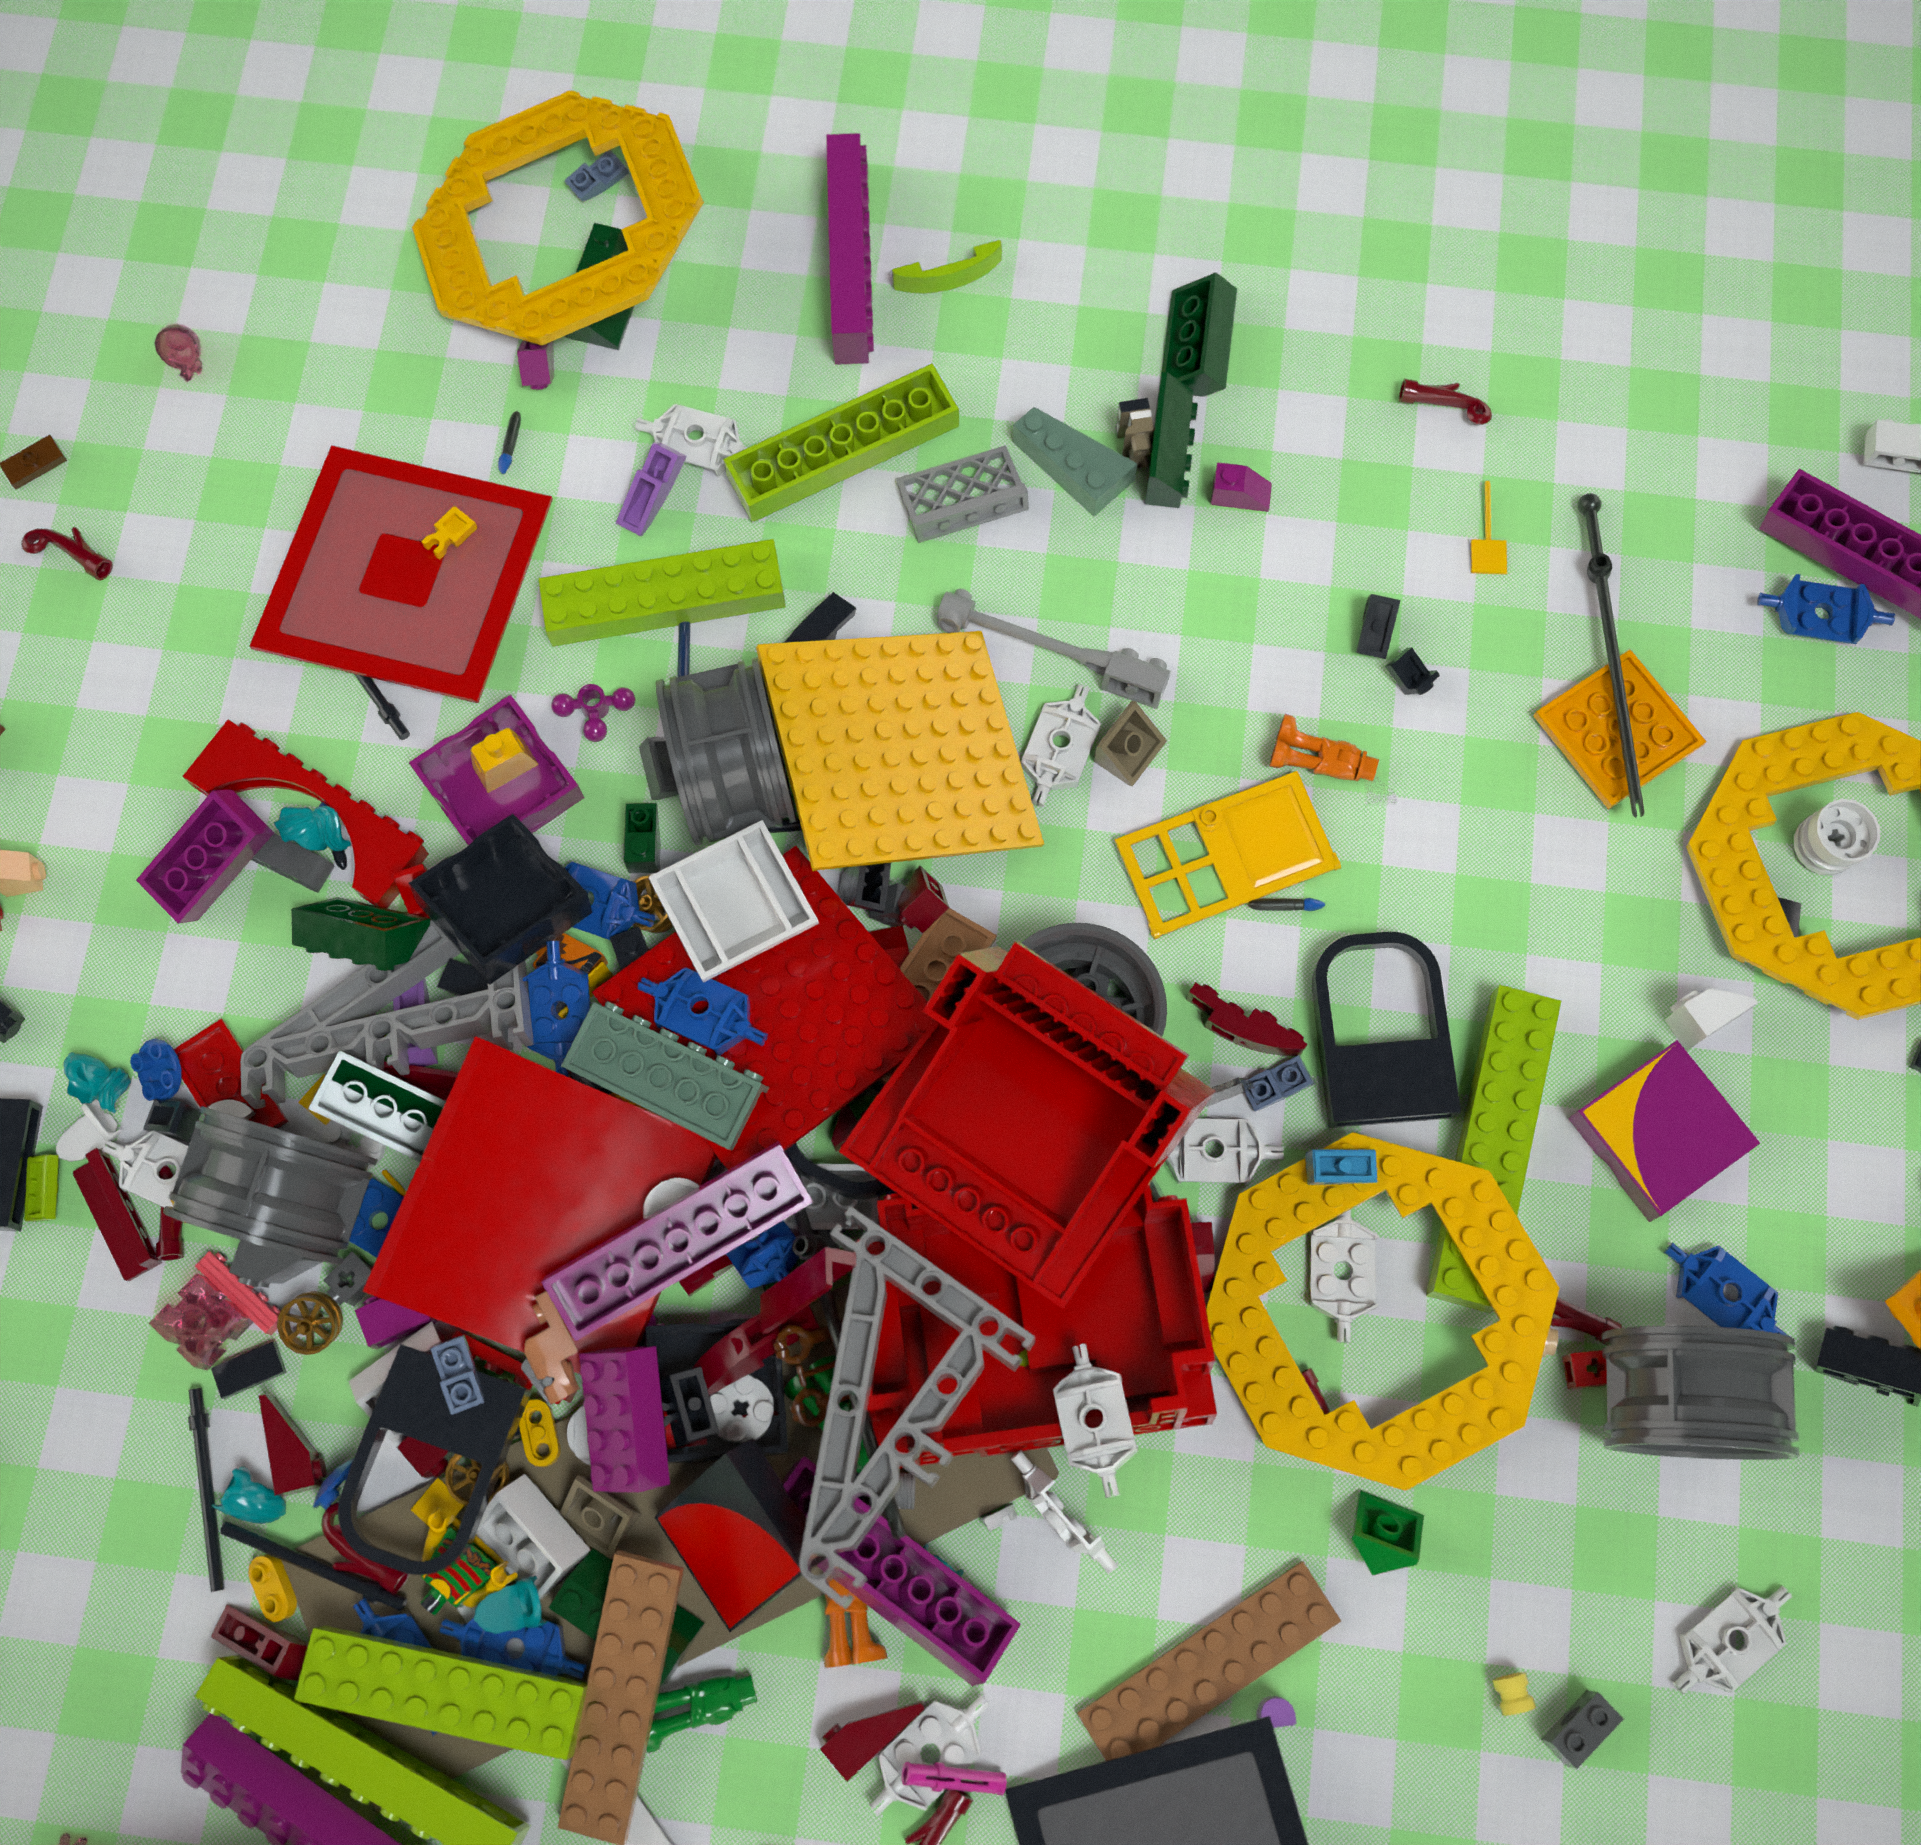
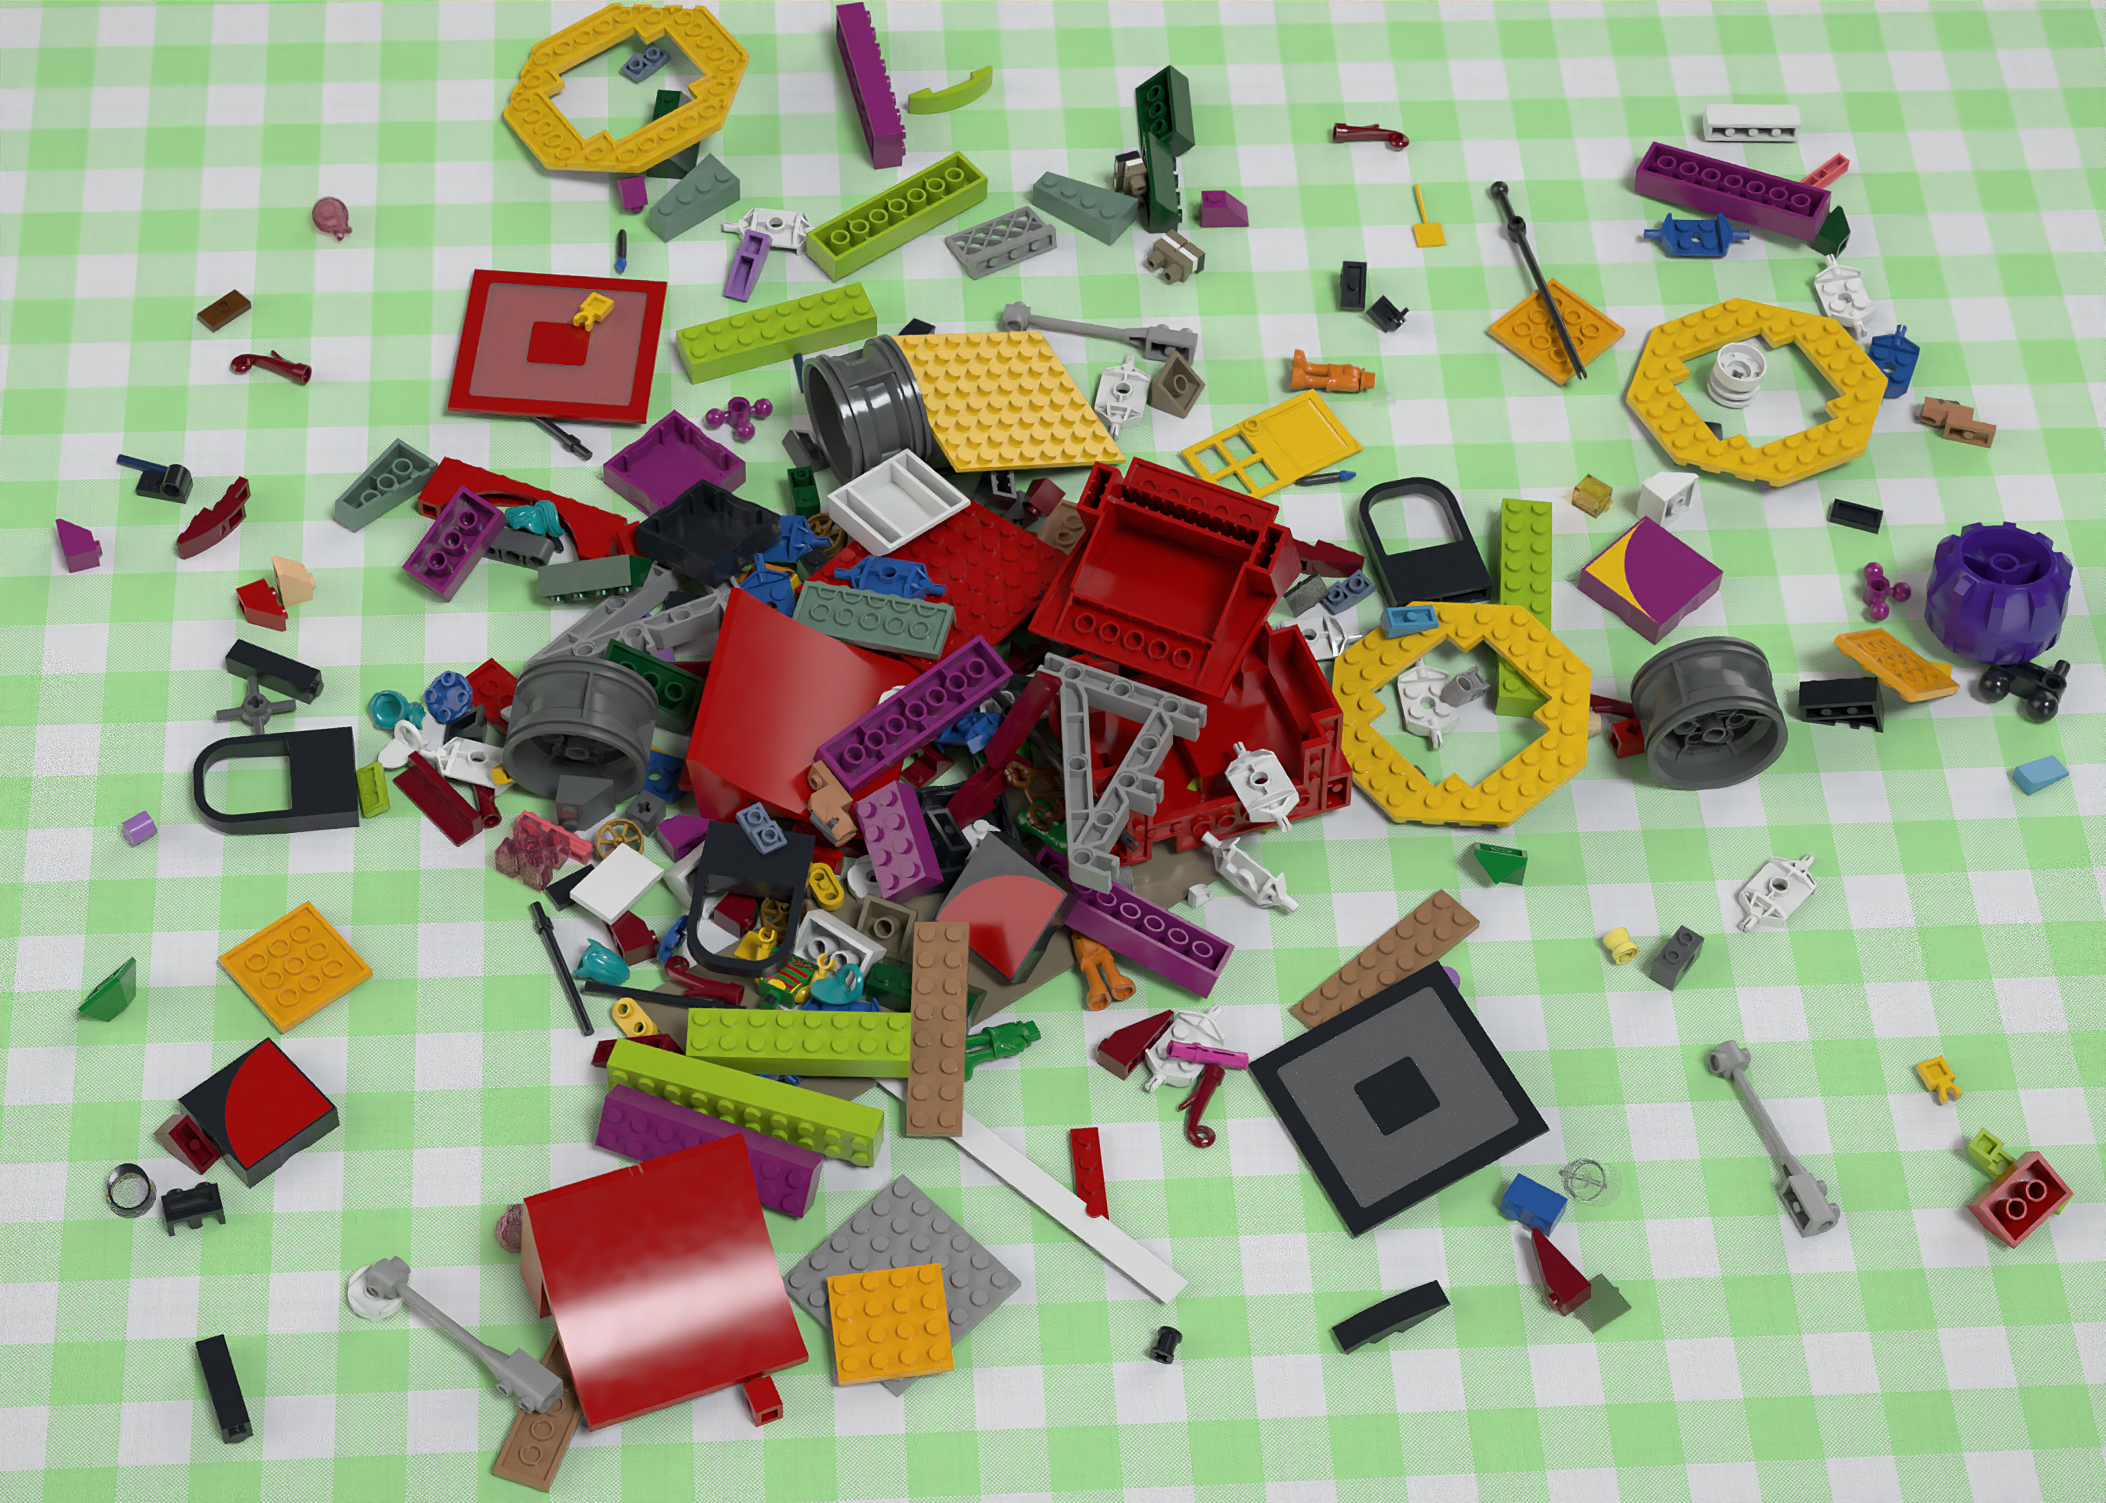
camera: 15 degrees left, 20 degrees down
(149, 748) = (384, 485): none -> sand green wedge
(285, 1393) = (616, 883): none -> white tile
(501, 758) = (675, 455): yellow torso -> none
(607, 382) = (694, 199): none -> sand green wedge
(1169, 549) = (1176, 257): none -> dark tan hips
(1394, 1260) = (1465, 687): none -> light grey piece
(1615, 989) = (1592, 496): none -> clear yellow brick

